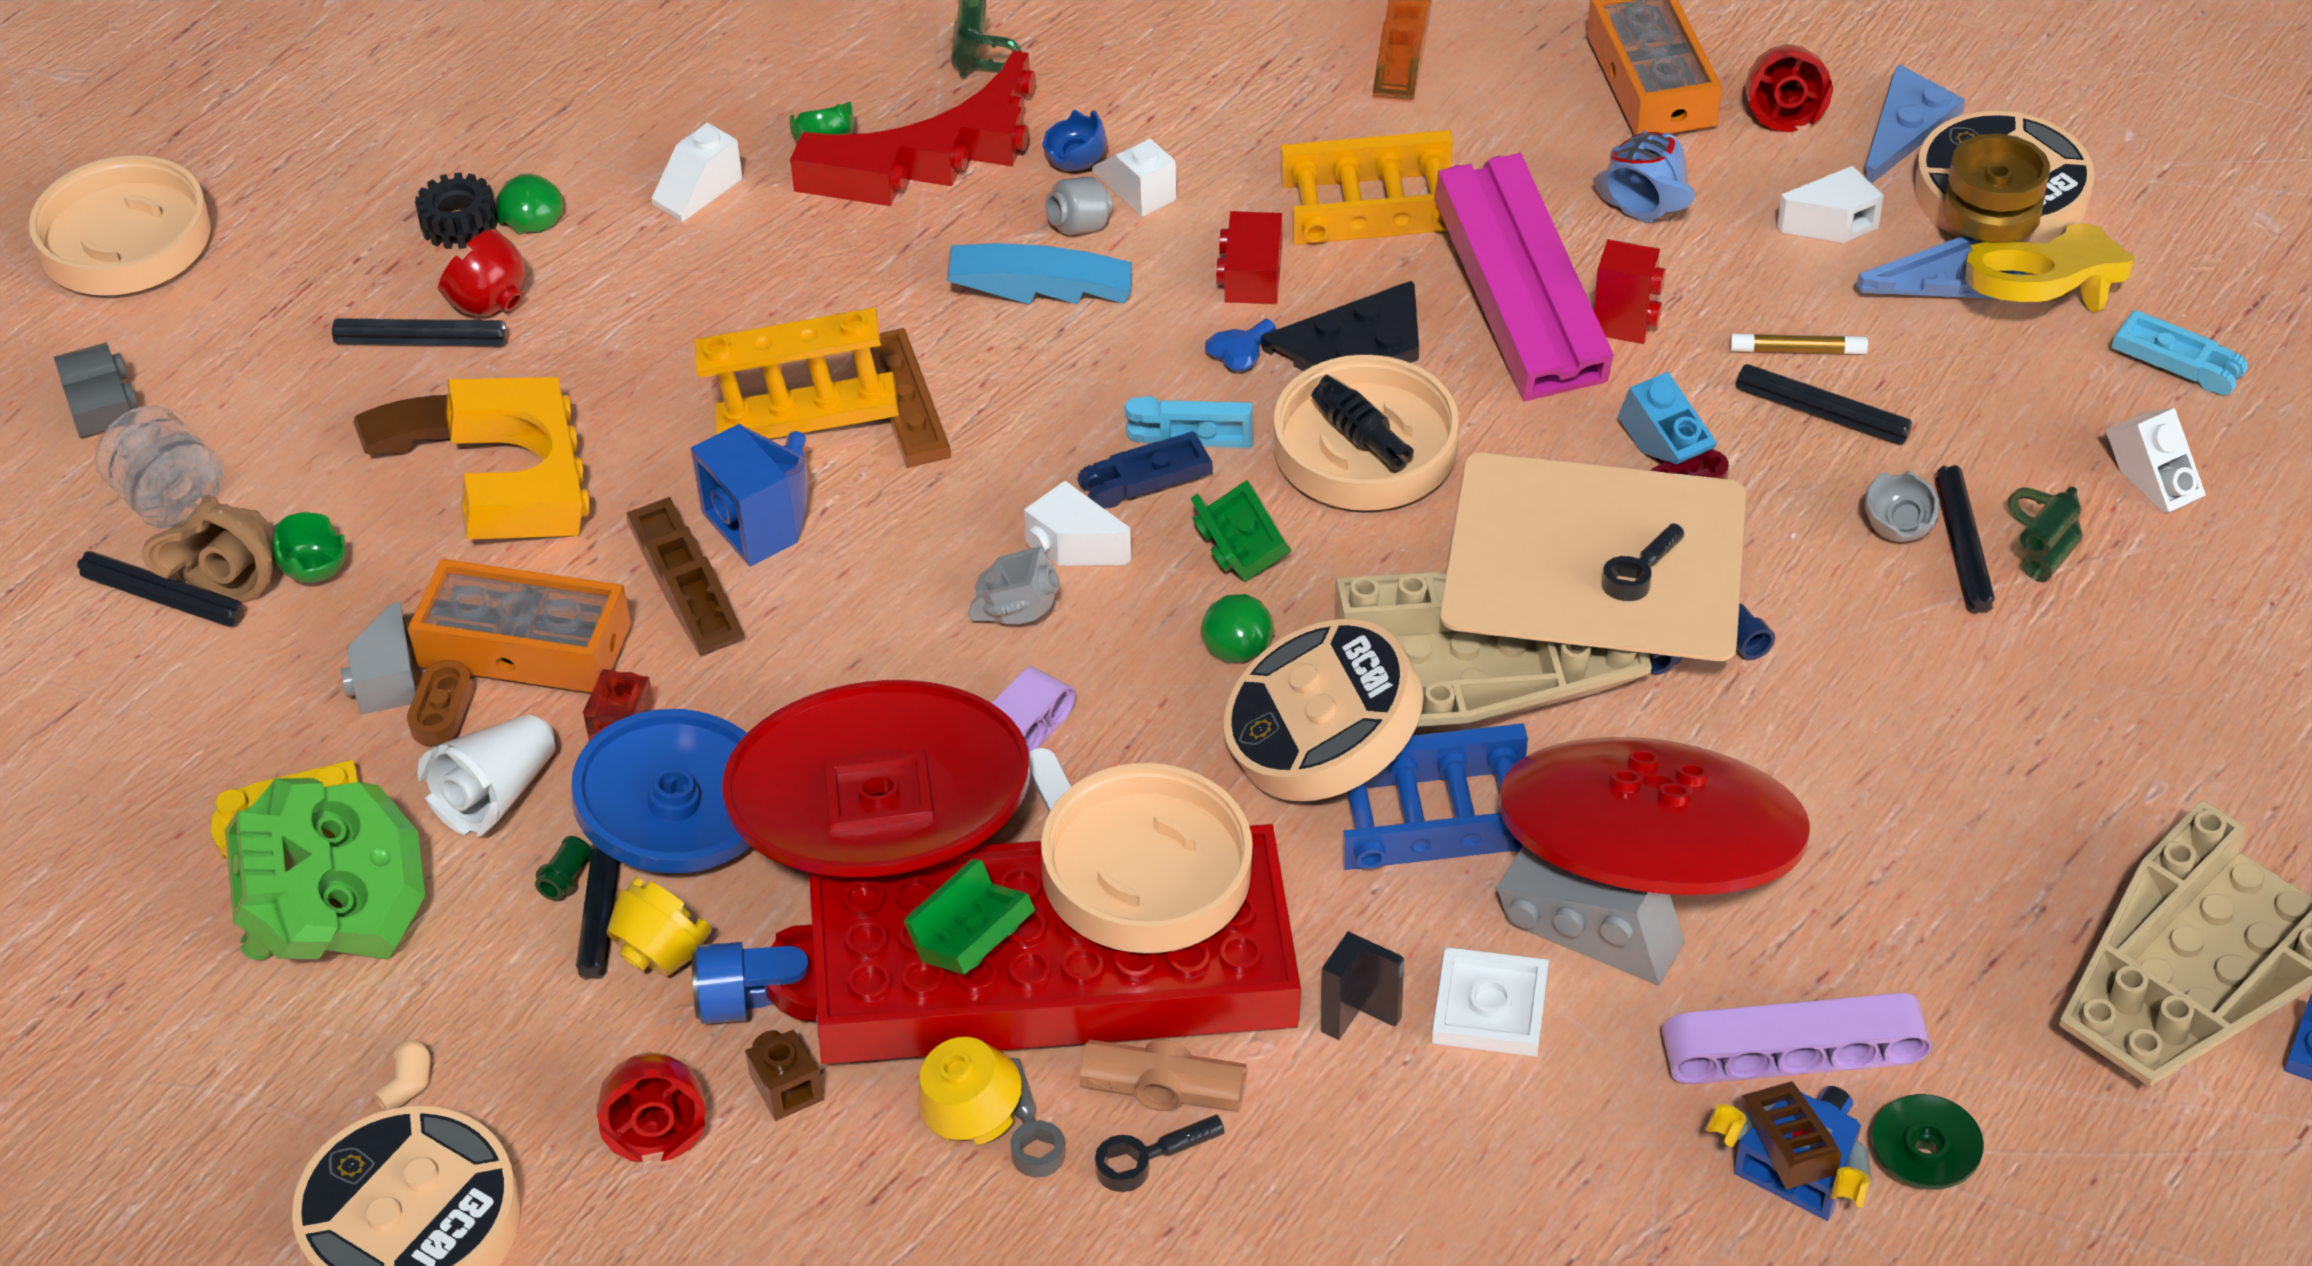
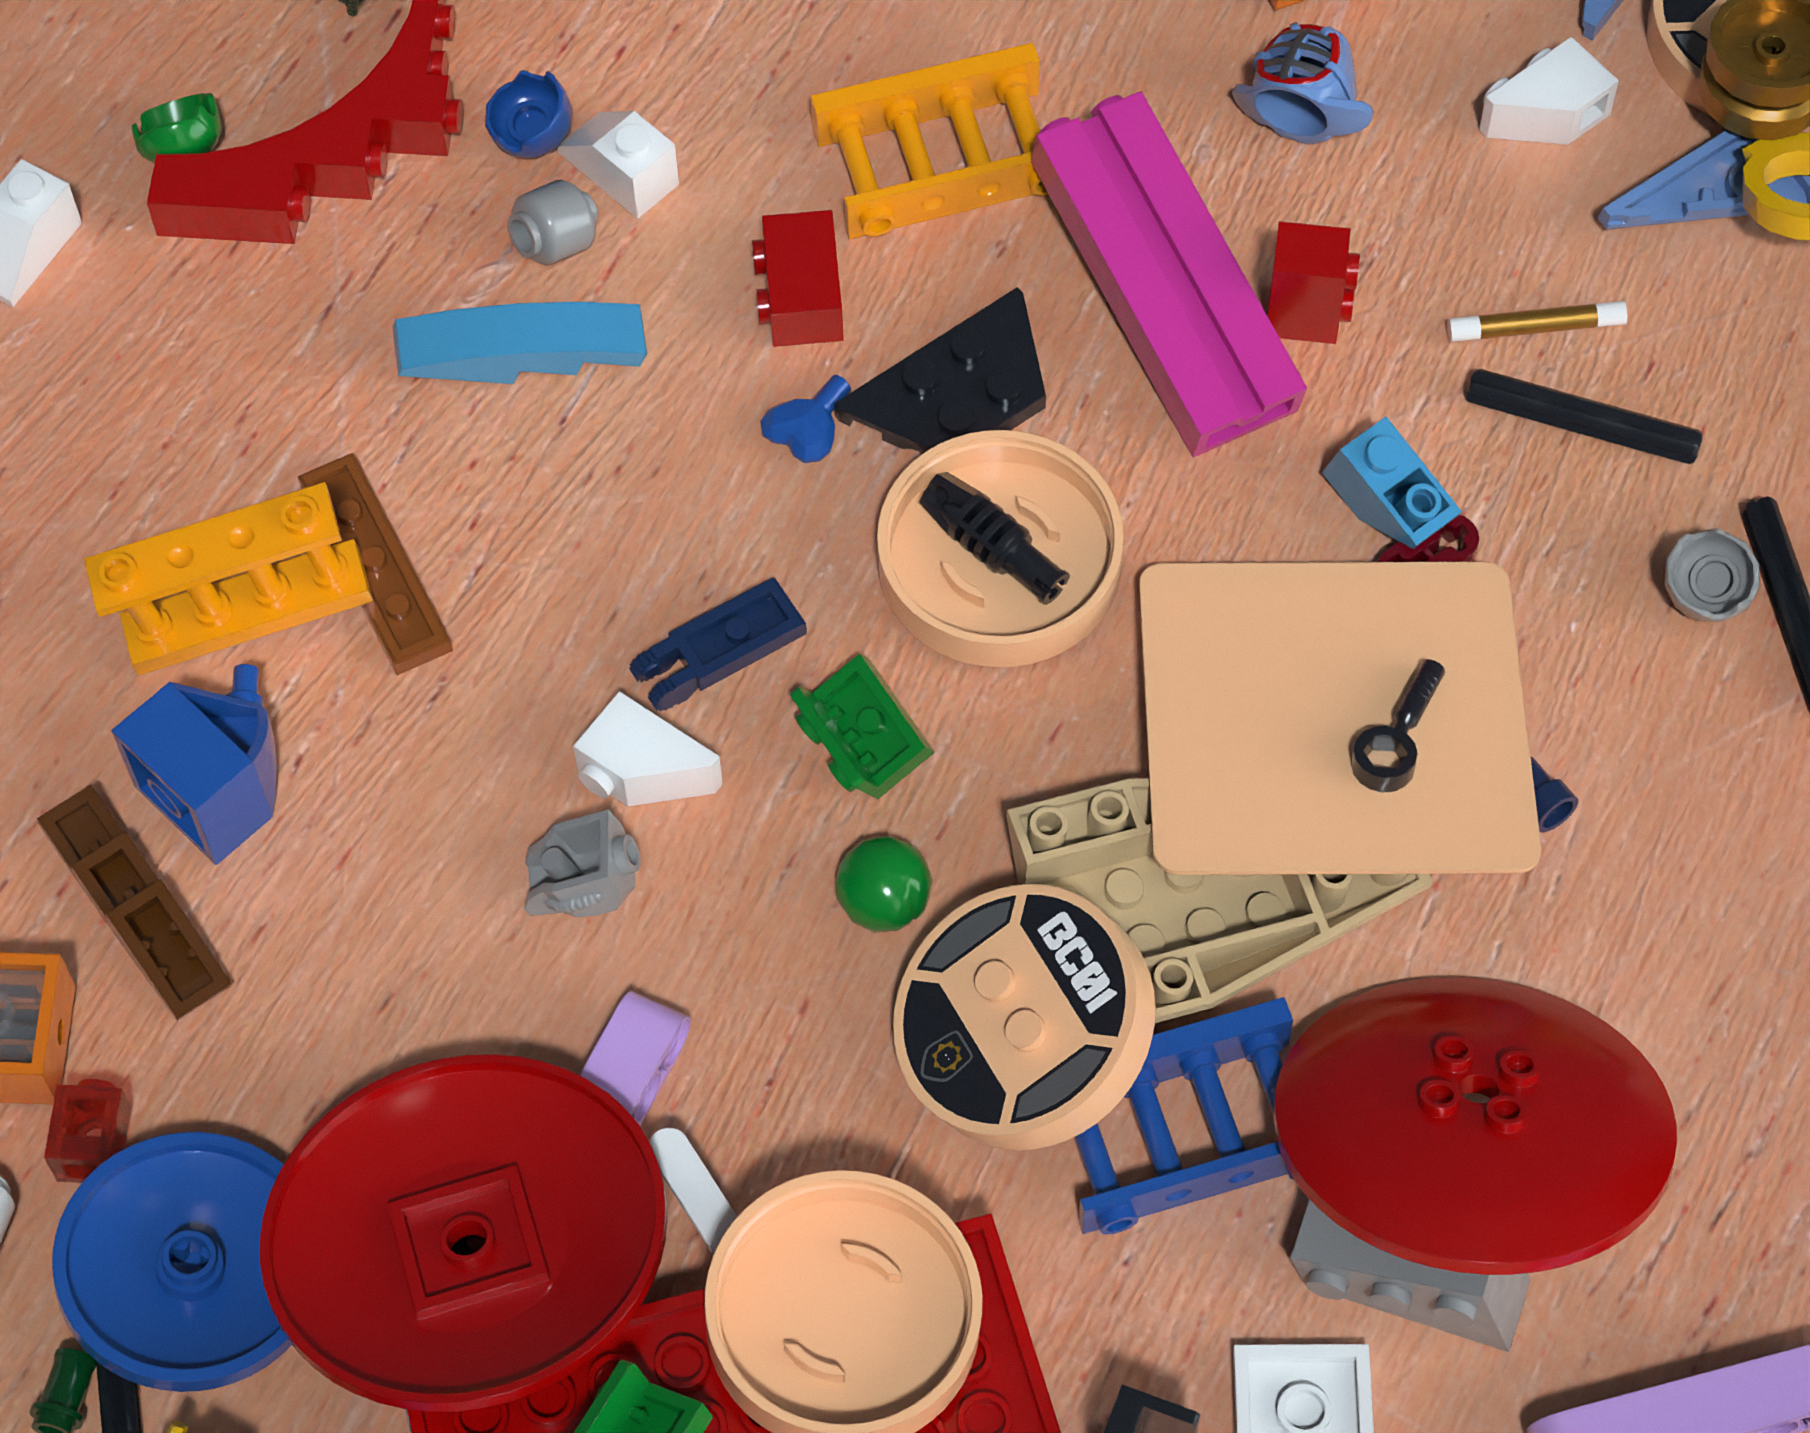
camera: 10 degrees left, 15 degrees up
(1213, 422) = (742, 564): medium azure hinge -> none

